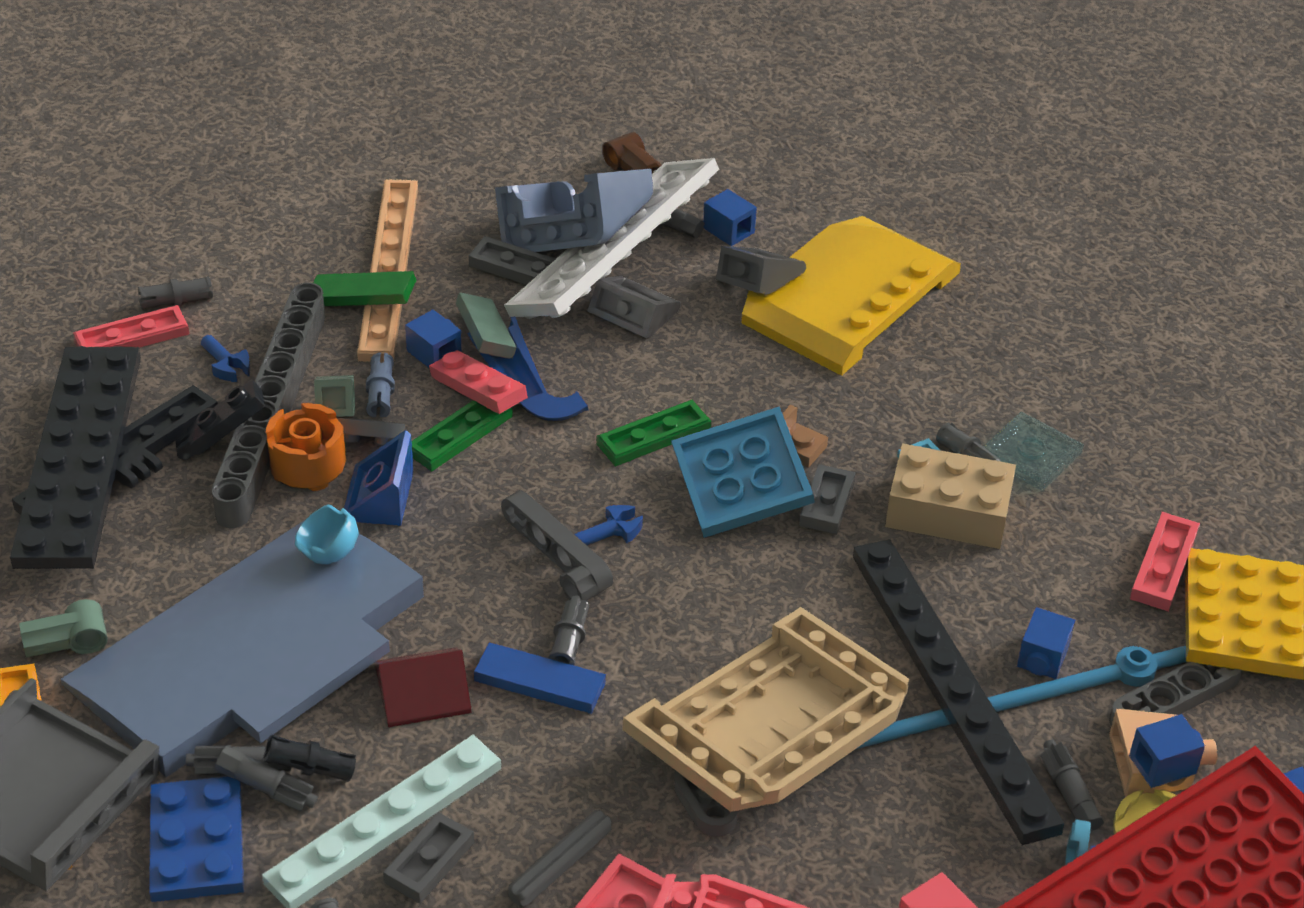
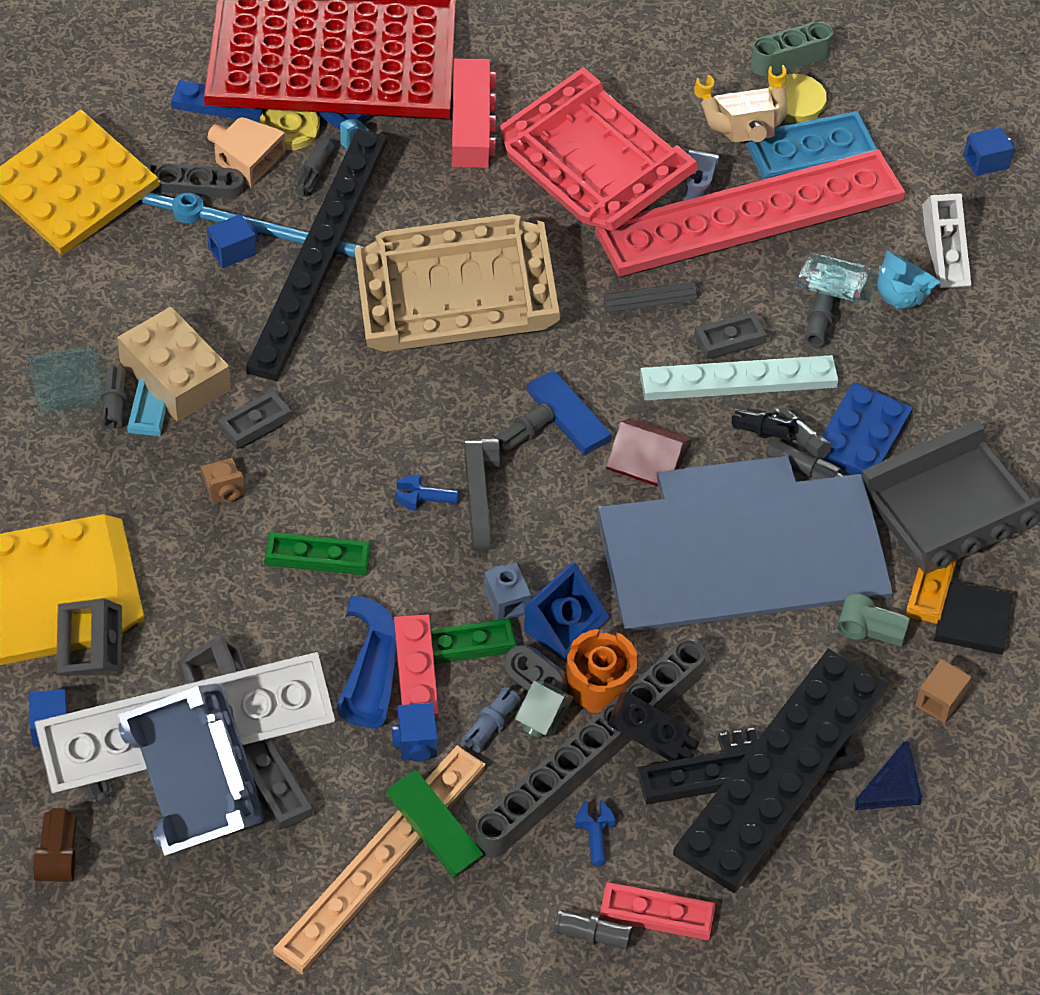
camera: 145 degrees left, 10 degrees up
(327, 535) = (649, 557): medium azure hair -> none
(450, 473) = (506, 591): none -> sand blue brick
(486, 325) = (365, 715): sand green tile -> none
(742, 472) = (300, 458): dark azure plate -> none
(1164, 561) = (85, 249): coral plate -> none
(1167, 750) = (260, 115): blue brick -> none

